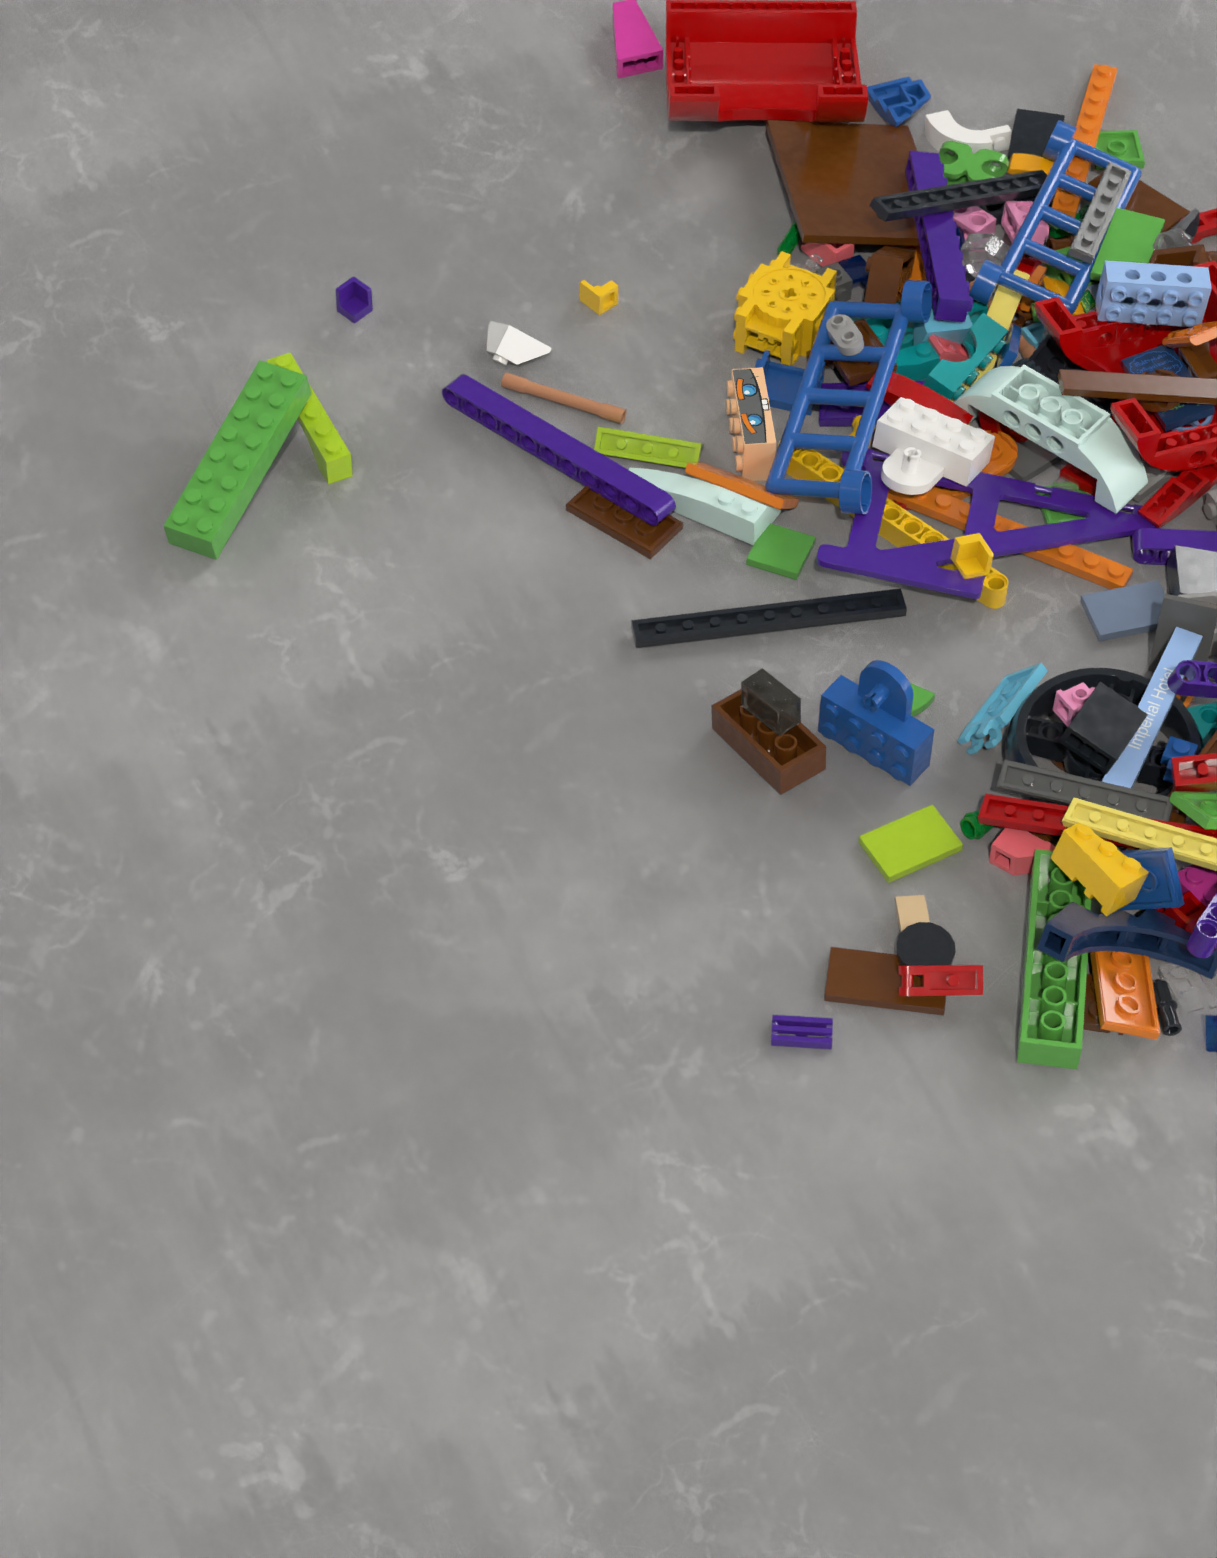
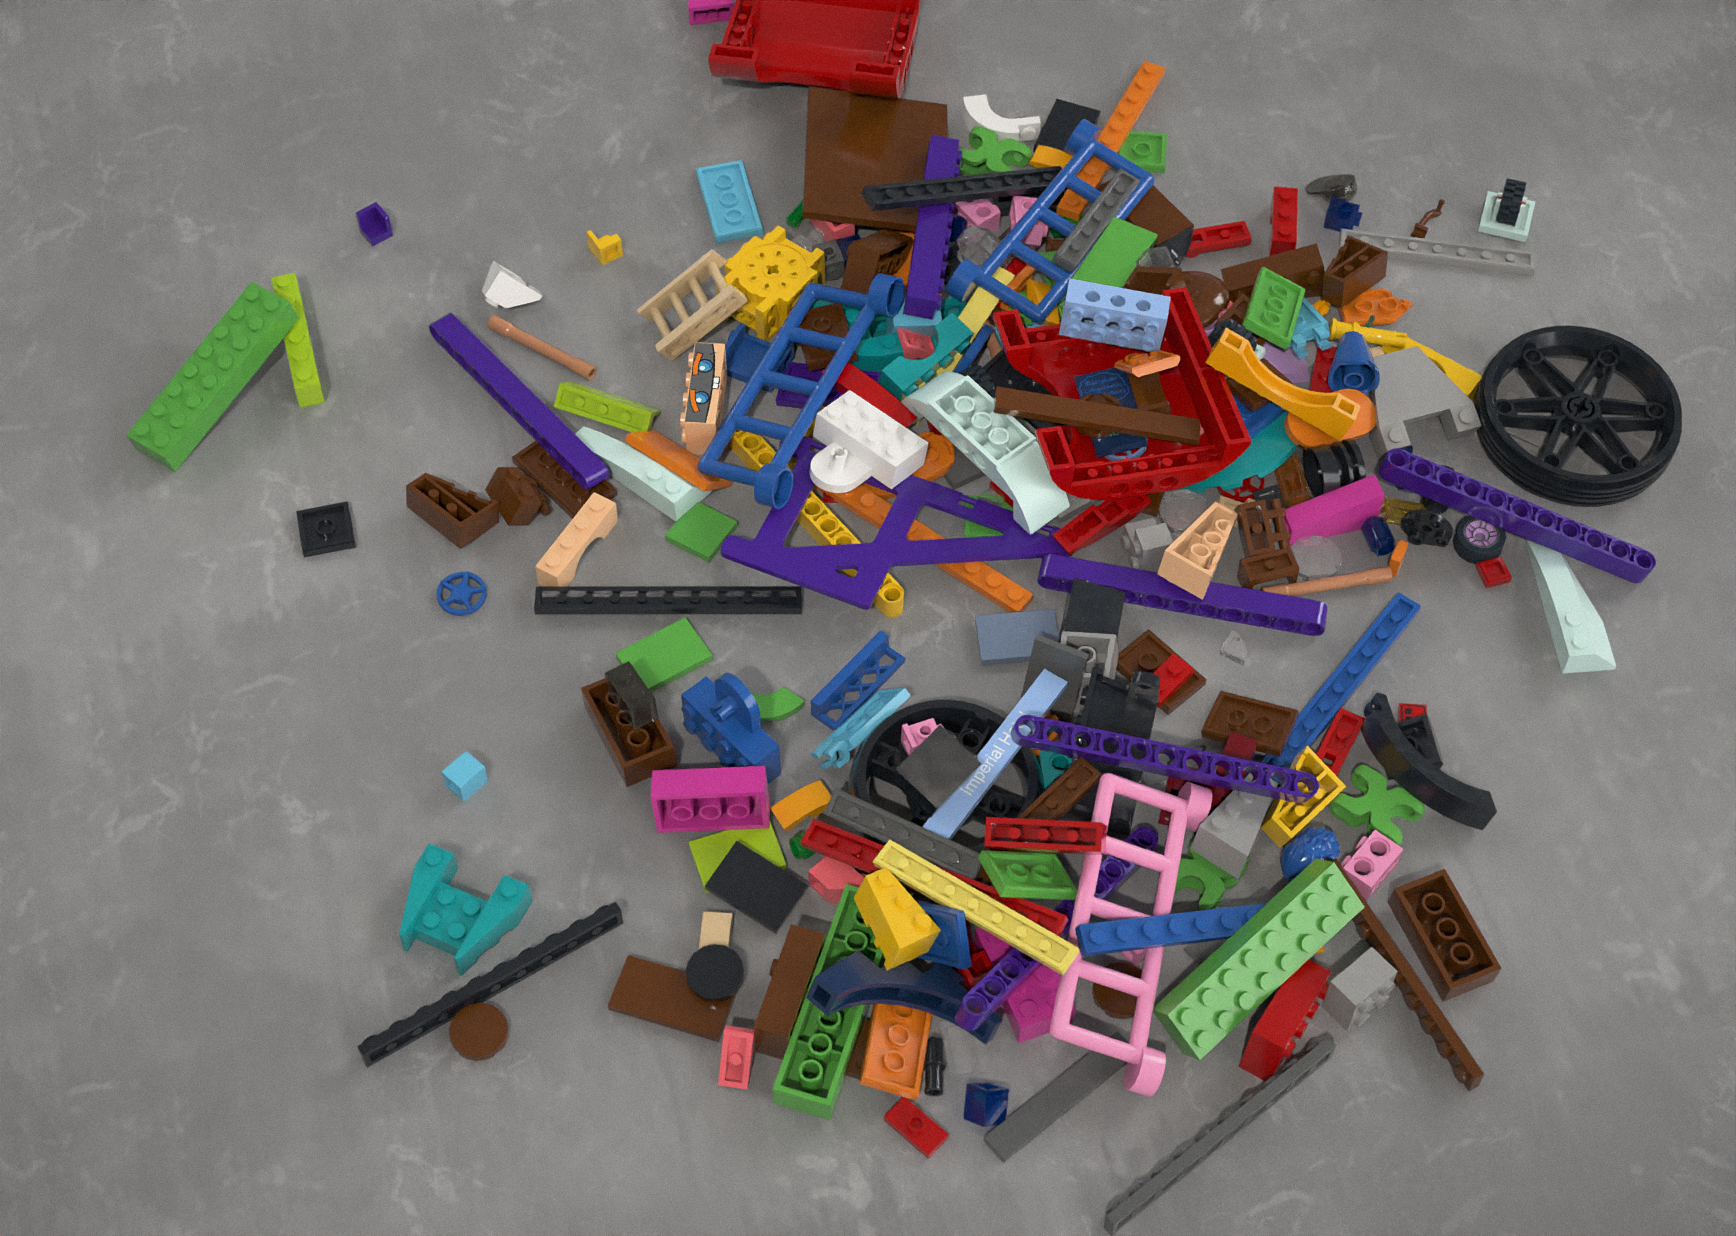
camera: 10 degrees right, 5 degrees up
(394, 594) = (326, 529): none -> black tile
(521, 559) = (451, 511): none -> reddish brown wedge
(553, 638) = (461, 593): none -> blue wheel
(584, 538) = (517, 496): none -> reddish brown brick
(614, 804) = (464, 776): none -> medium azure panel
(647, 936) = (454, 918): none -> teal wedge
(652, 587) = (560, 561): none -> light nougat arch
(698, 993) = (489, 985): none -> black plate
(701, 1036) = (478, 1031): none -> reddish brown tile
(712, 240) = (729, 201): none -> medium azure tile
(728, 352) = (704, 319): none -> tan fence
(787, 661) = (666, 654): none -> bright green tile
(802, 1028) = (556, 1025): dark purple tile -> none
(845, 335) = (810, 320): light grey plate -> none
(875, 790) = (710, 799): none -> dark pink brick
(898, 99) = (944, 76): blue slope -> none
(940, 868) = (756, 887): none -> black tile
(941, 980) = (718, 1008): red plate -> none
(961, 788) = (801, 804): none -> light orange slope
(970, 1022) = (736, 1057): none -> coral slope
(972, 556) = (869, 566): yellow panel -> none
(975, 664) = (851, 673): none -> blue fence
(1007, 956) = (787, 990): none -> reddish brown brick
(1163, 1064) = (916, 1127): none -> red plate
(1176, 748) = (1009, 803): blue plate -> none

